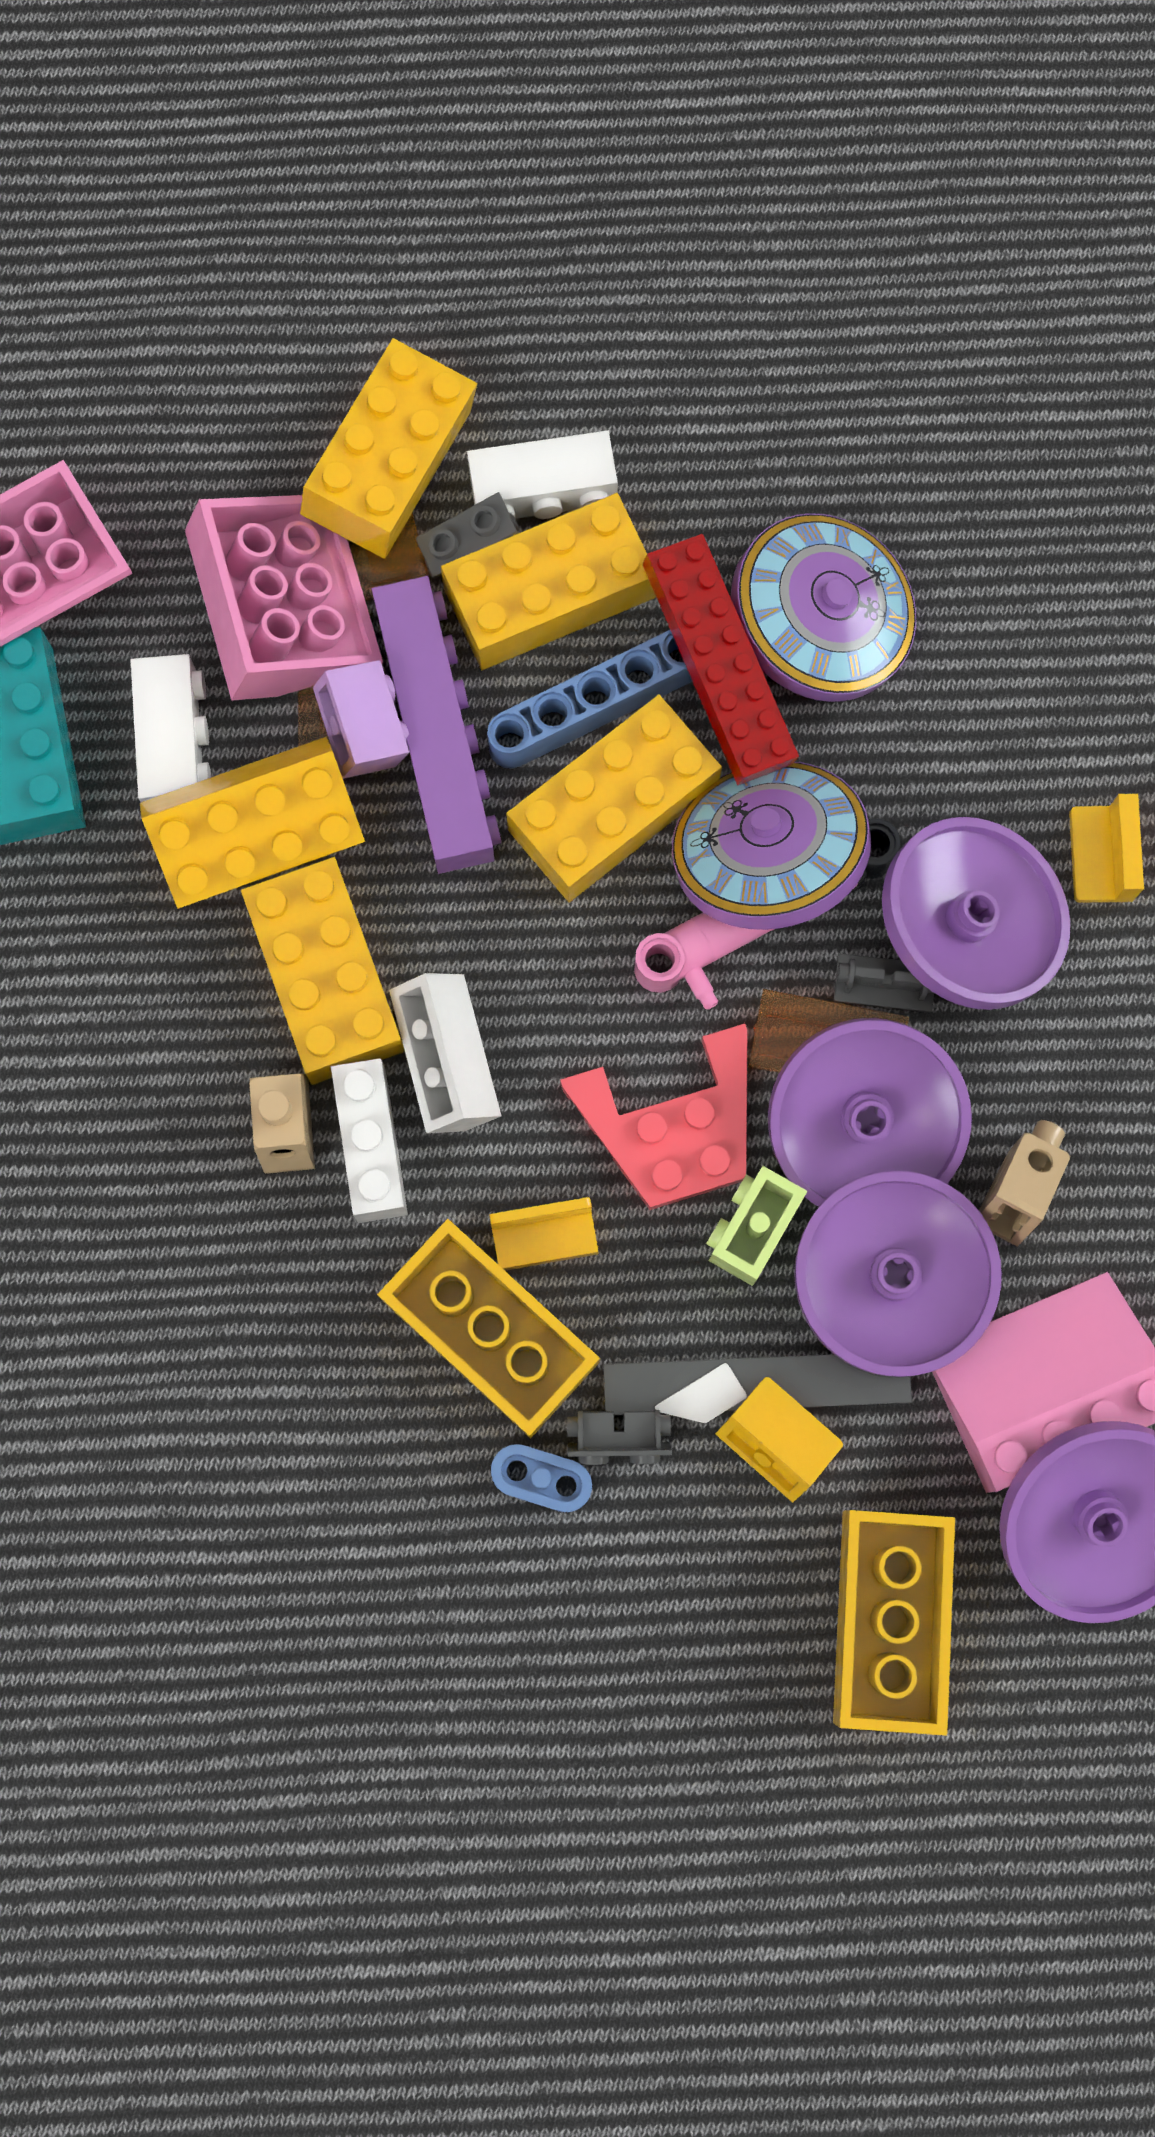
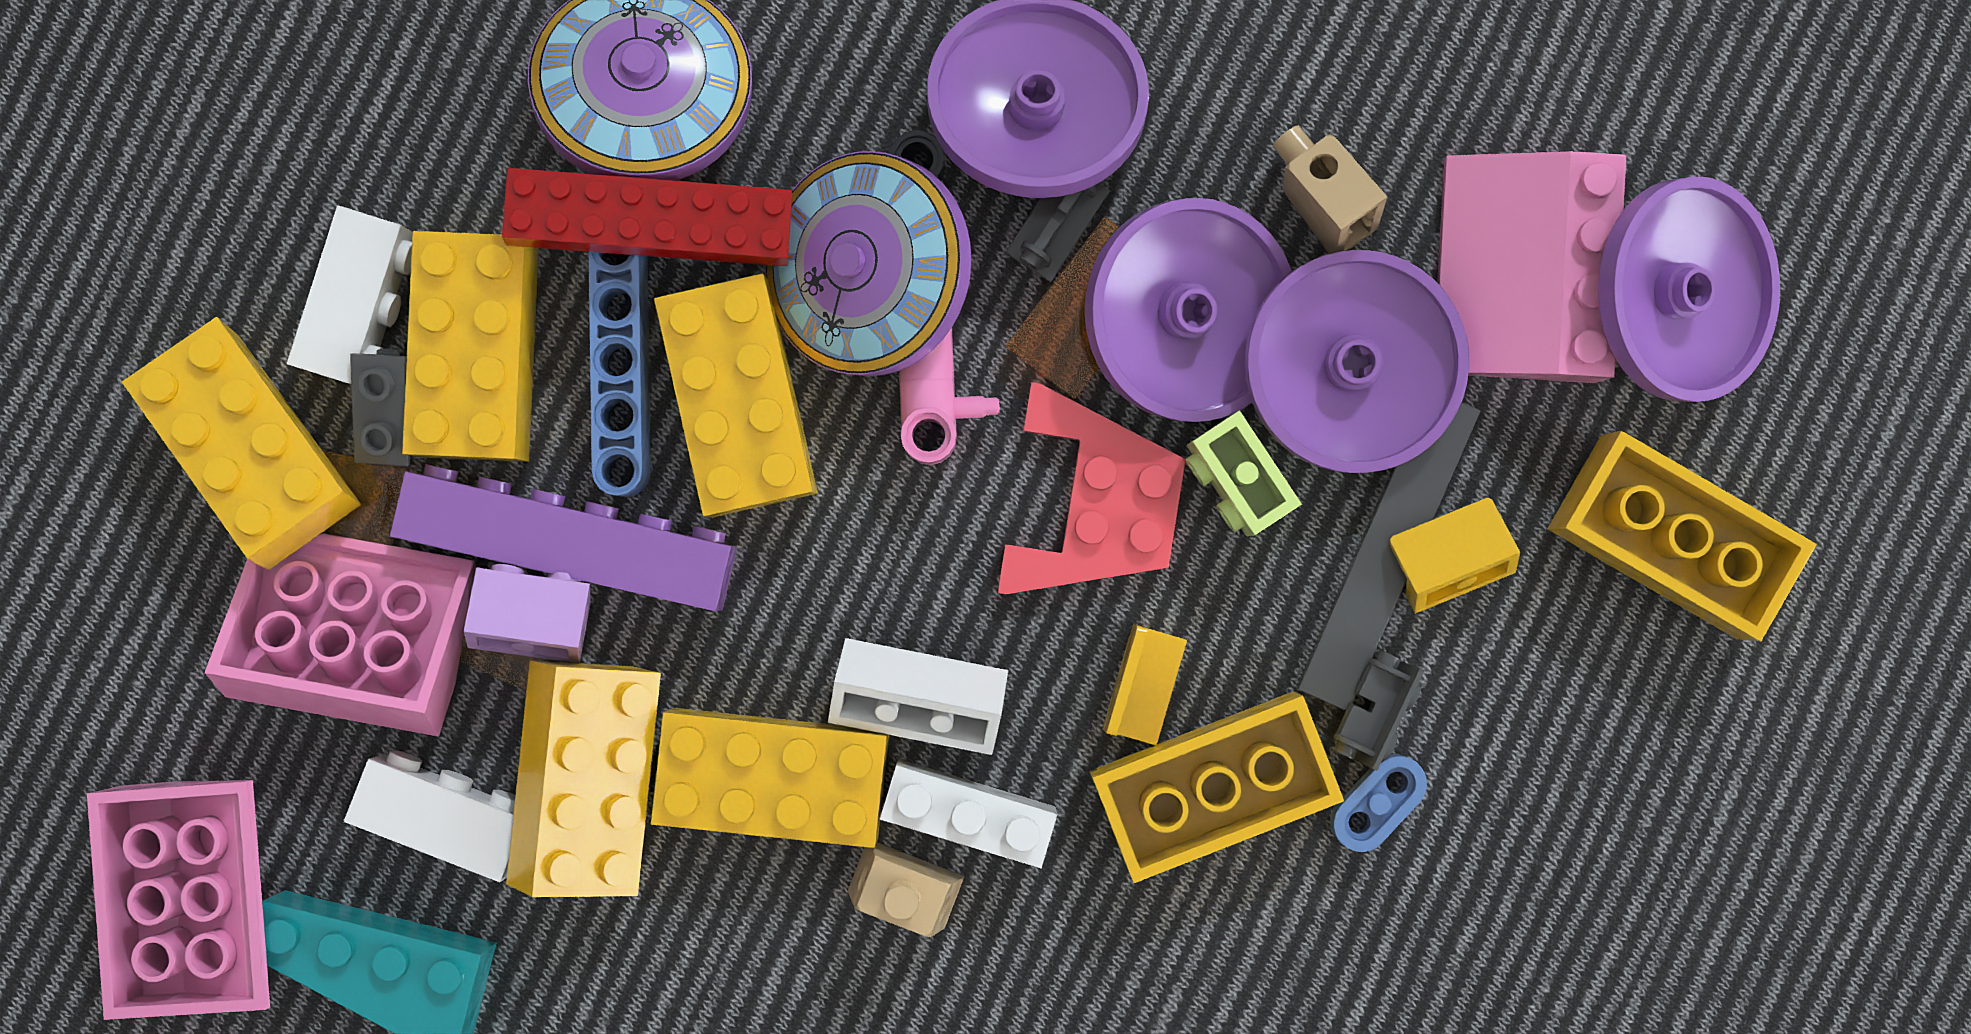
camera: 65 degrees left, 10 degrees up
(706, 1396) = (1378, 606): white sticker -> none

